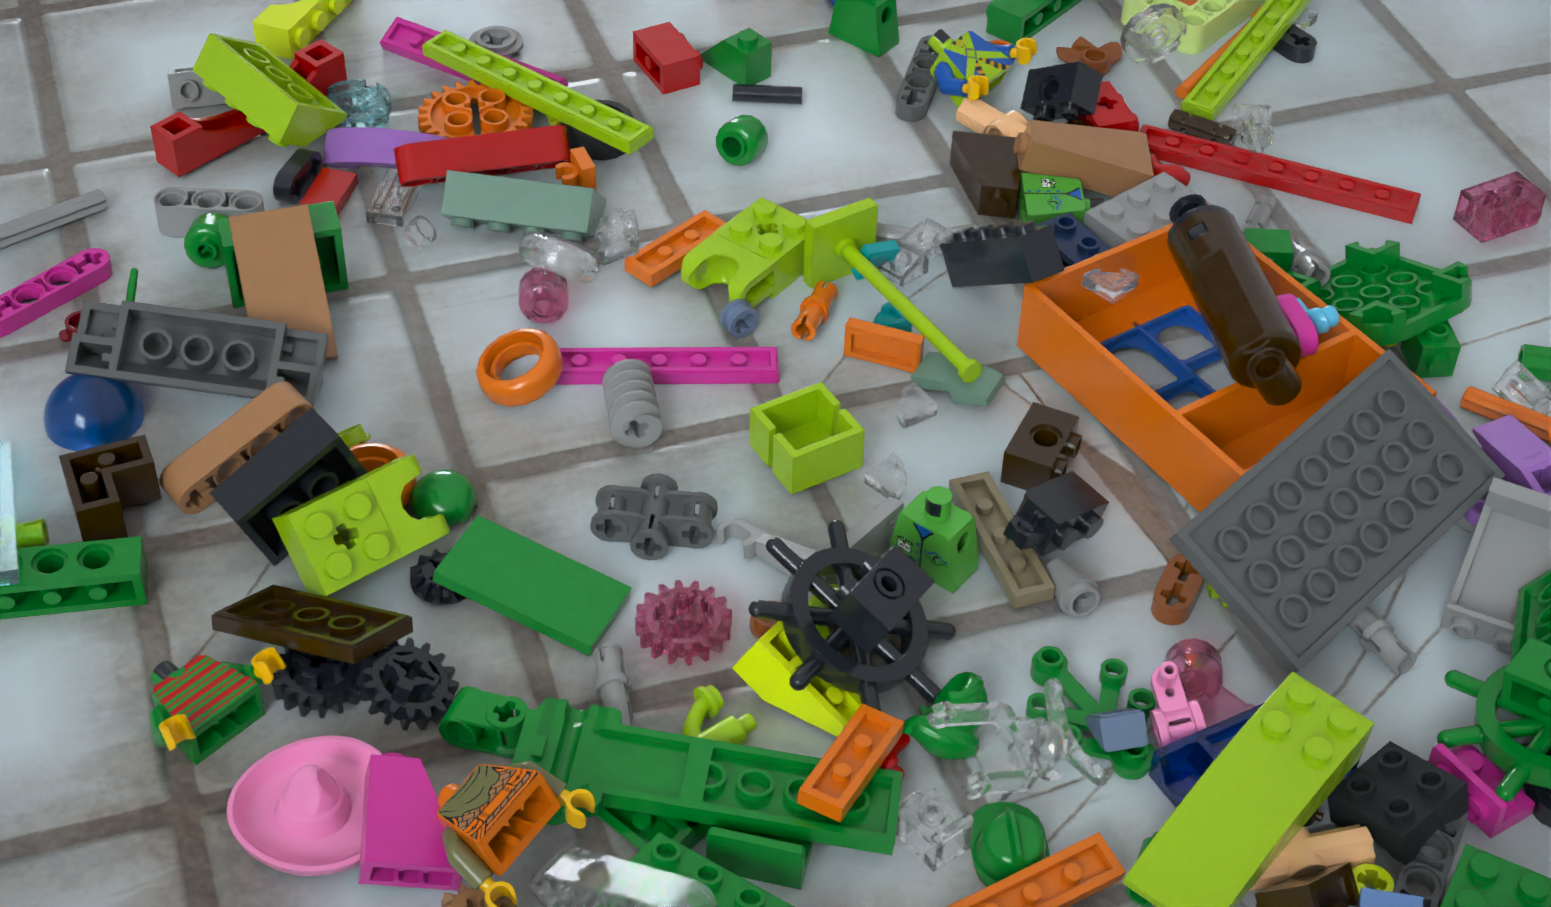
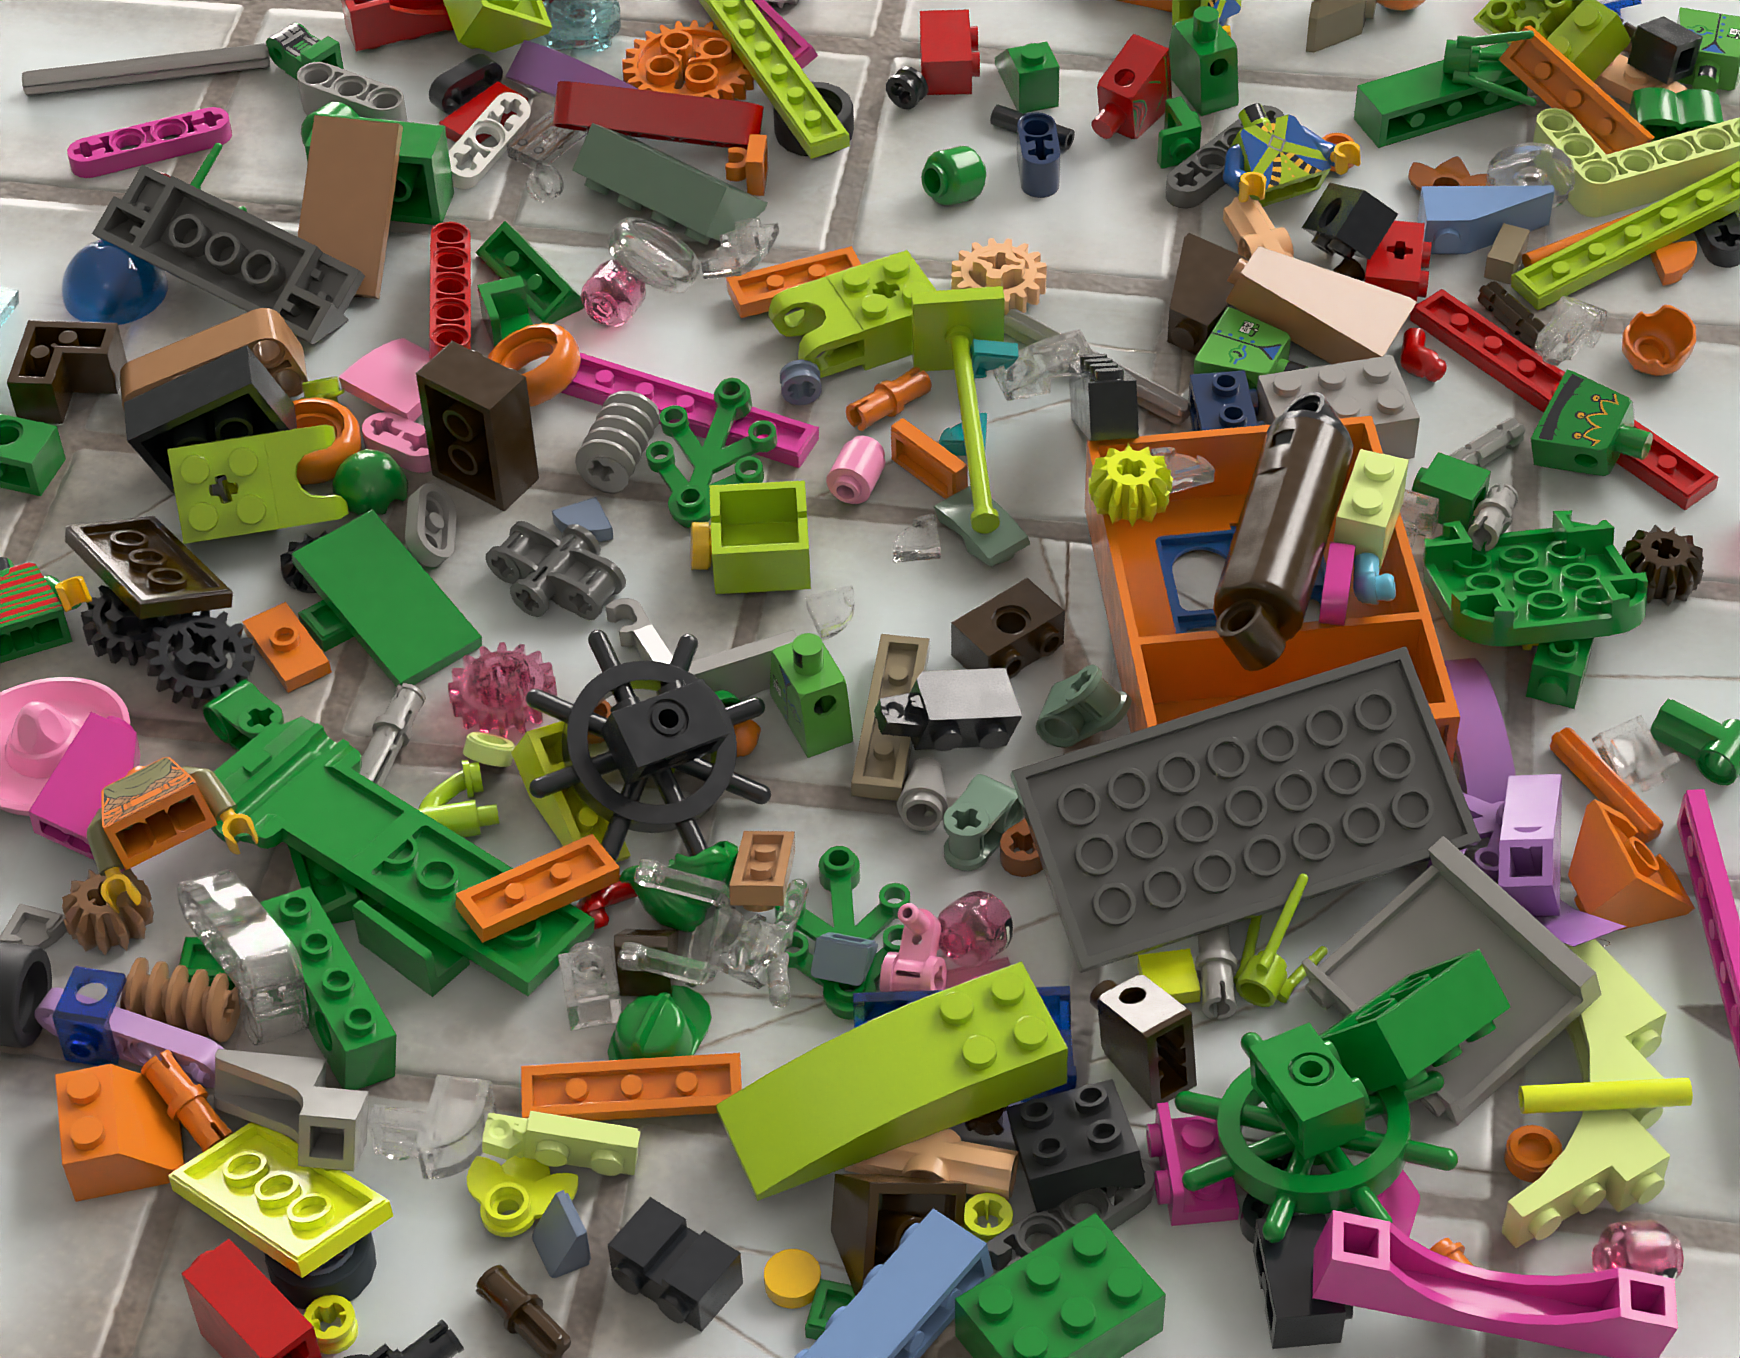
camera: 30 degrees right, 5 degrees up
(136, 189) = (297, 47): none -> green leg
(358, 204) = (490, 124): none -> white beam
(413, 412) = (388, 378): none -> bright pink slope
(417, 339) = (449, 286): none -> red beam
(449, 455) = (399, 438): none -> bright pink beam
(456, 302) = (546, 289): none -> green slope
(458, 336) = (504, 307): none -> green panel
(470, 652) = (287, 647): none -> orange plate
(486, 624) = (324, 626): none -> green tile
(523, 513) = (430, 525): none -> light grey plate
(528, 419) = (478, 425): none -> dark brown brick
(640, 467) = (587, 514): none -> sand blue tile
(648, 94) = (906, 87): none -> black bush
(707, 672) = (489, 749): none -> yellowish green tile
(720, 430) = (732, 402): none -> green plant
(756, 461) = (700, 546): none -> yellow tile
(792, 110) = (1038, 155): none -> dark blue beam
(826, 194) = (1002, 265): none -> light nougat gear
(832, 60) = (1133, 89): none -> red torso
(834, 367) = (856, 470): none -> bright pink brick
(882, 68) = (1180, 133): none -> green bracket
(951, 776) = (644, 982): none -> dark brown slope
(1015, 683) = (762, 870): none -> medium nougat plate
(1093, 302) = (1130, 485): none -> neon yellow gear
(1128, 593) = (978, 822): none -> sand green piece
(1135, 66) = (1471, 216): none -> medium blue slope
(1139, 482) = (1080, 708): none -> sand green piece
(1166, 90) = (1506, 253): none -> dark tan piece
(1275, 66) = (1674, 260): none -> orange tile
(1278, 257) = (1372, 503): none -> yellowish green brick
(1317, 116) = (1659, 341): none -> orange hair
(1323, 184) = (1587, 428): none -> green torso
(1348, 657) = (1173, 973): none -> neon yellow tile
(1386, 693) = (1146, 1037): none -> dark brown torso
(1414, 626) = (1264, 976): none -> lime plant
(1438, 250) = (1669, 561): none -> dark brown gear

